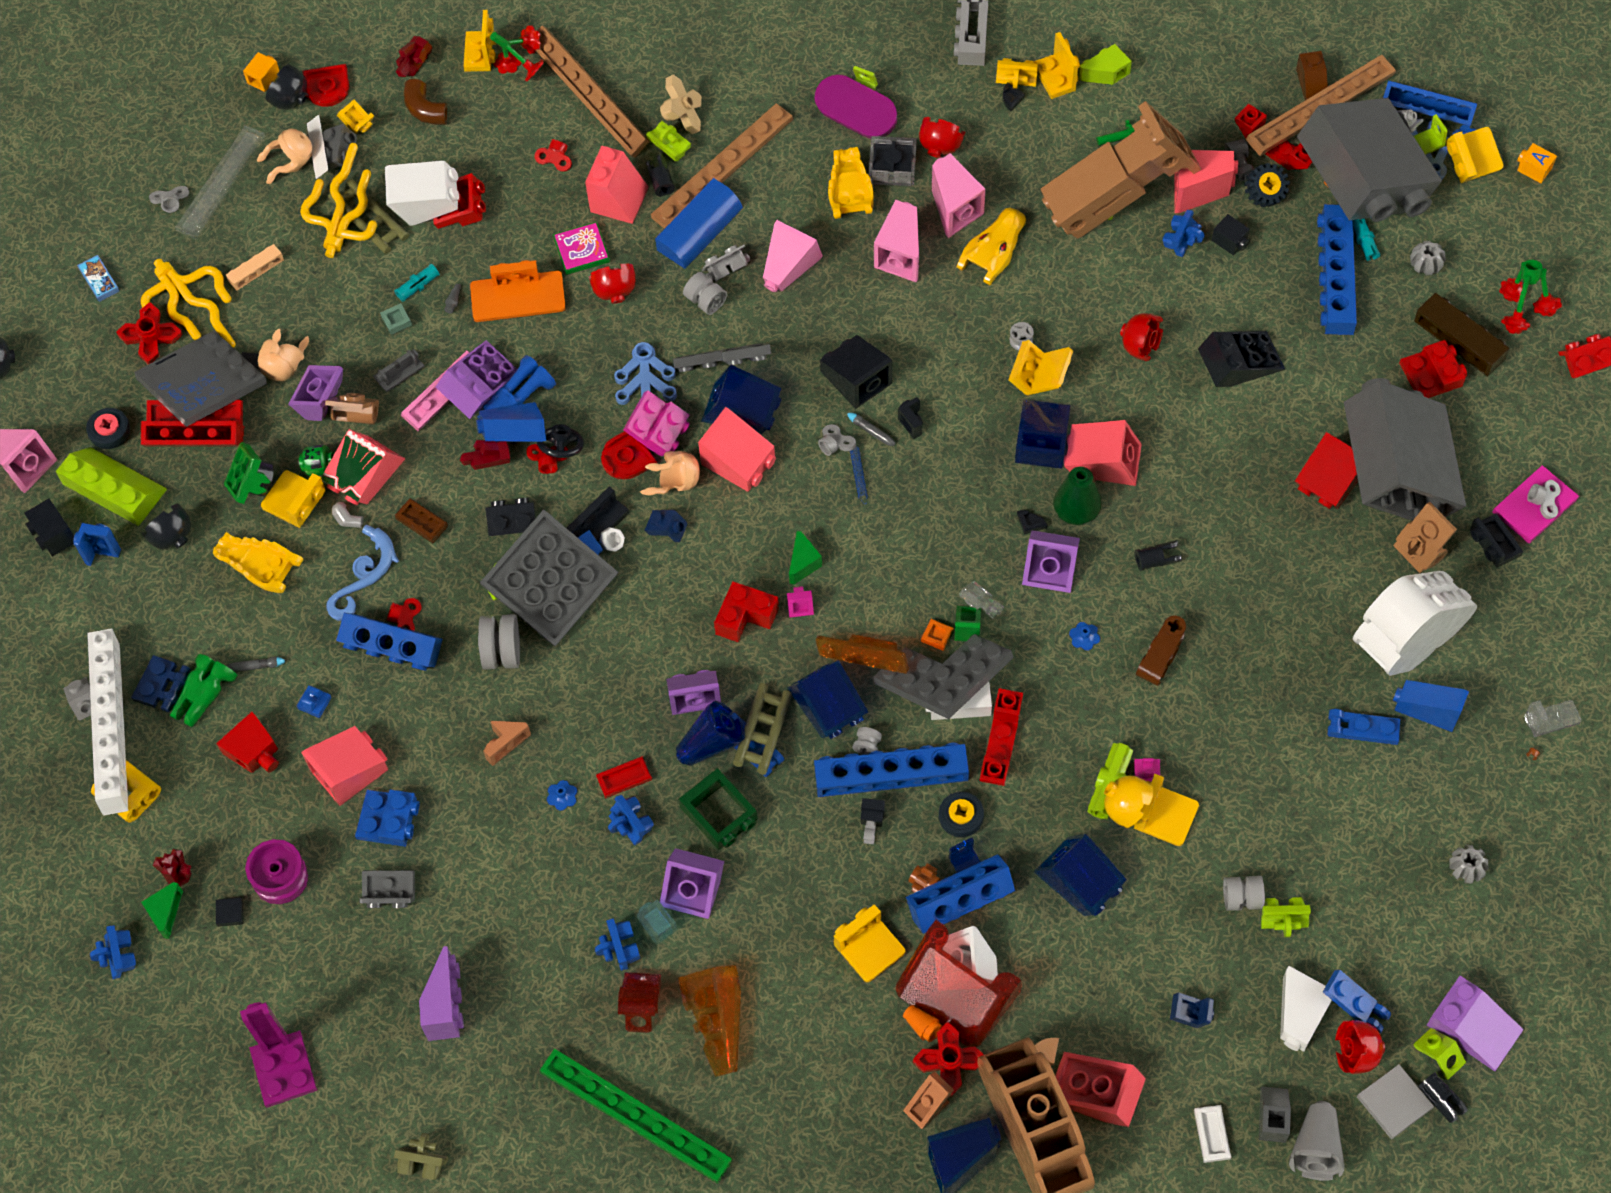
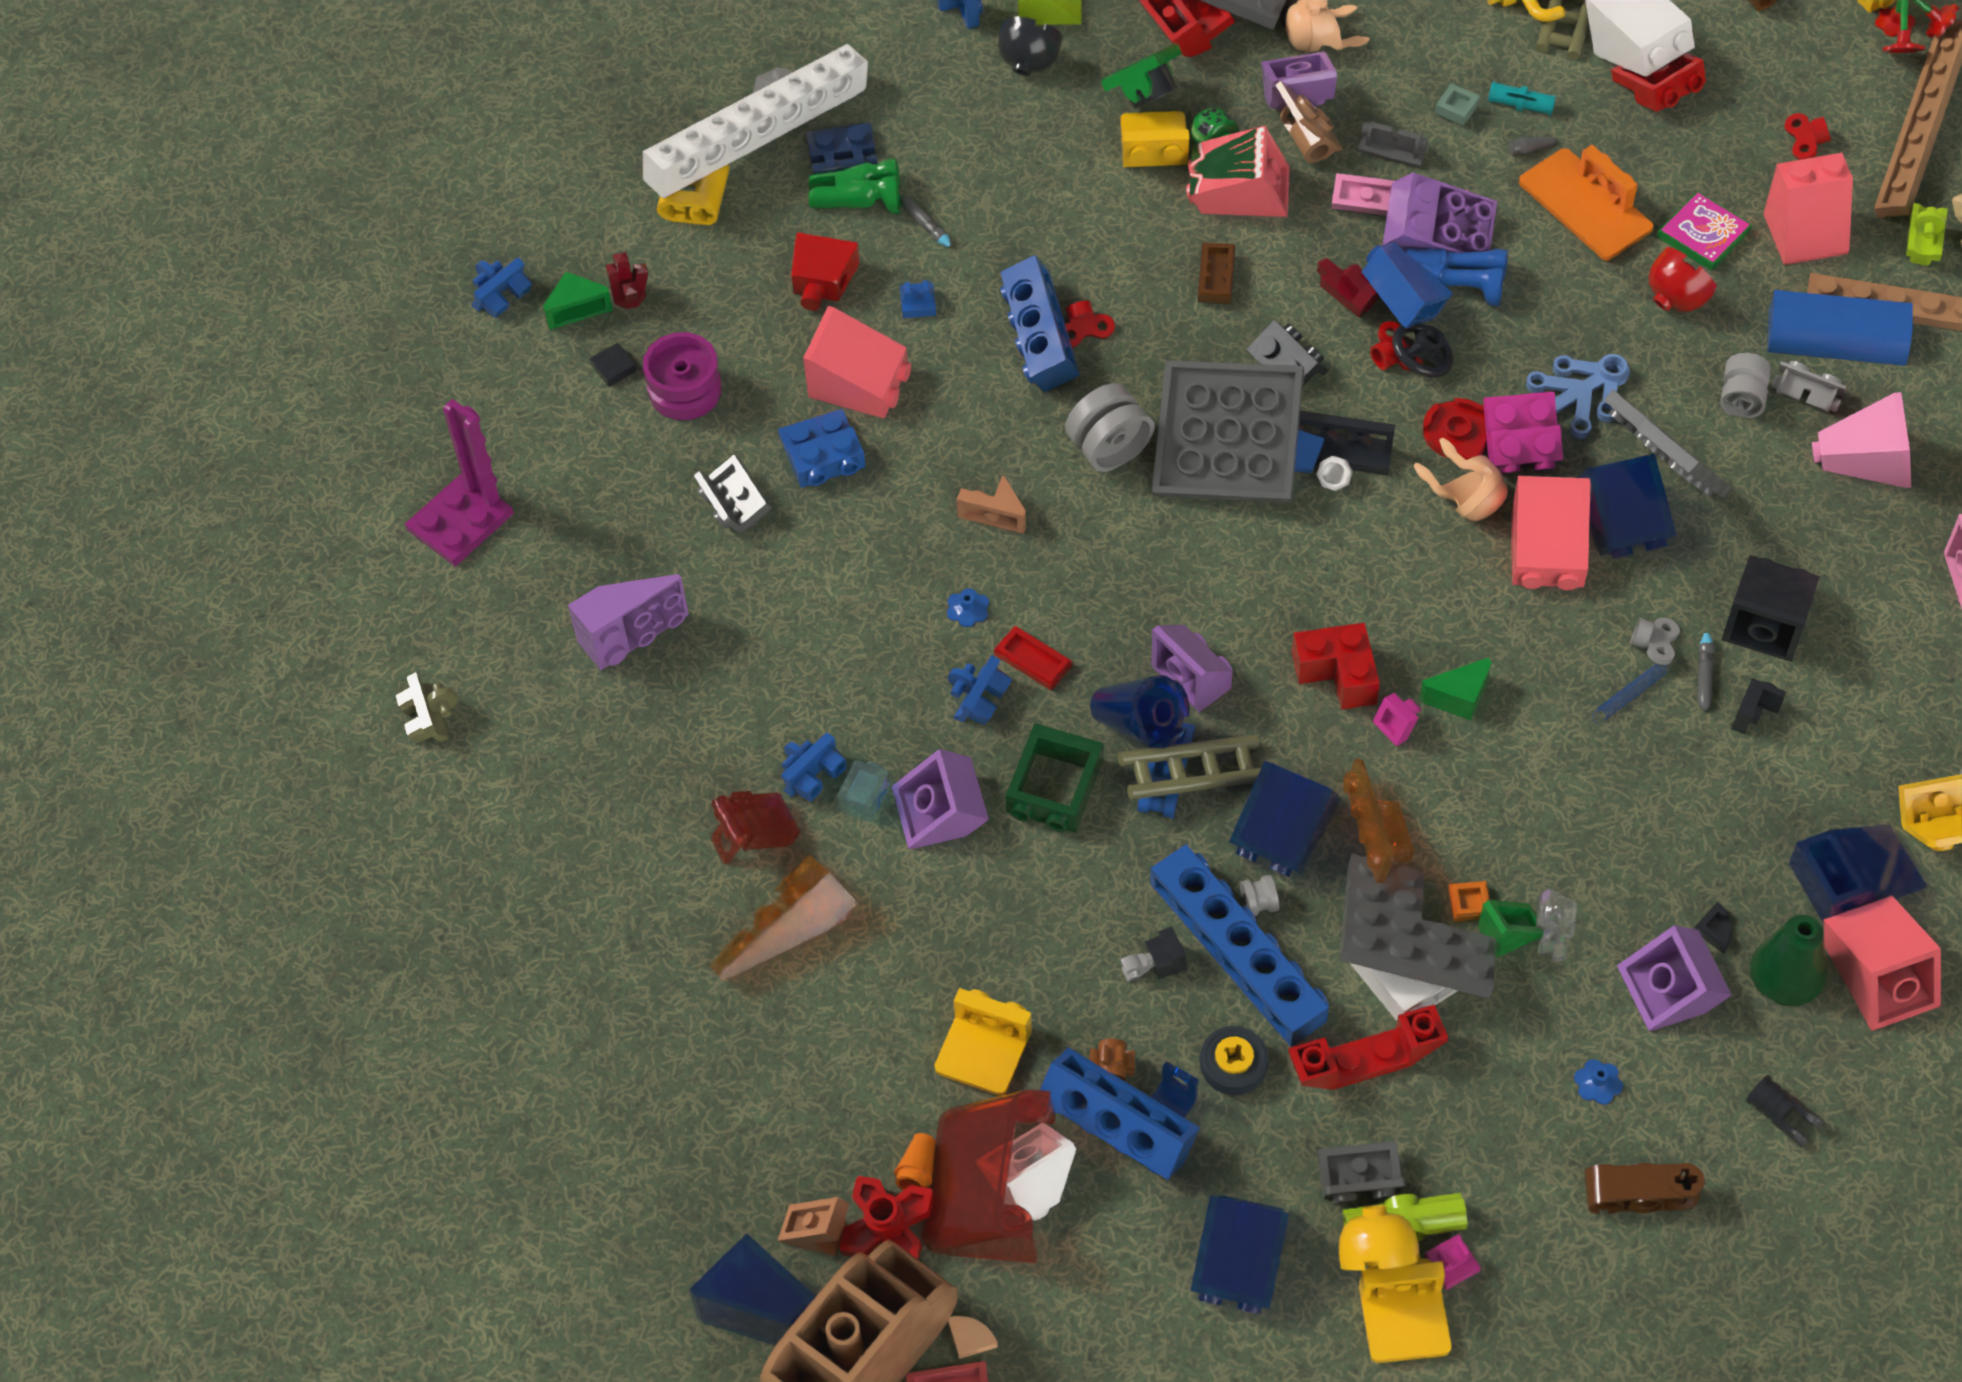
camera: 60 degrees right, 5 degrees down
(259, 561) = (1050, 150): yellow animal -> none
(343, 517) = (1165, 200): light grey arm -> none
(359, 568) = (1116, 248): medium blue plant -> none
(636, 1116) = (605, 906): green plate -> none
(660, 177) = (1871, 254): black hinge -> none
(666, 524) = (1398, 520): dark blue bracket -> none
(1069, 787) = (1360, 1170): none -> dark grey bracket

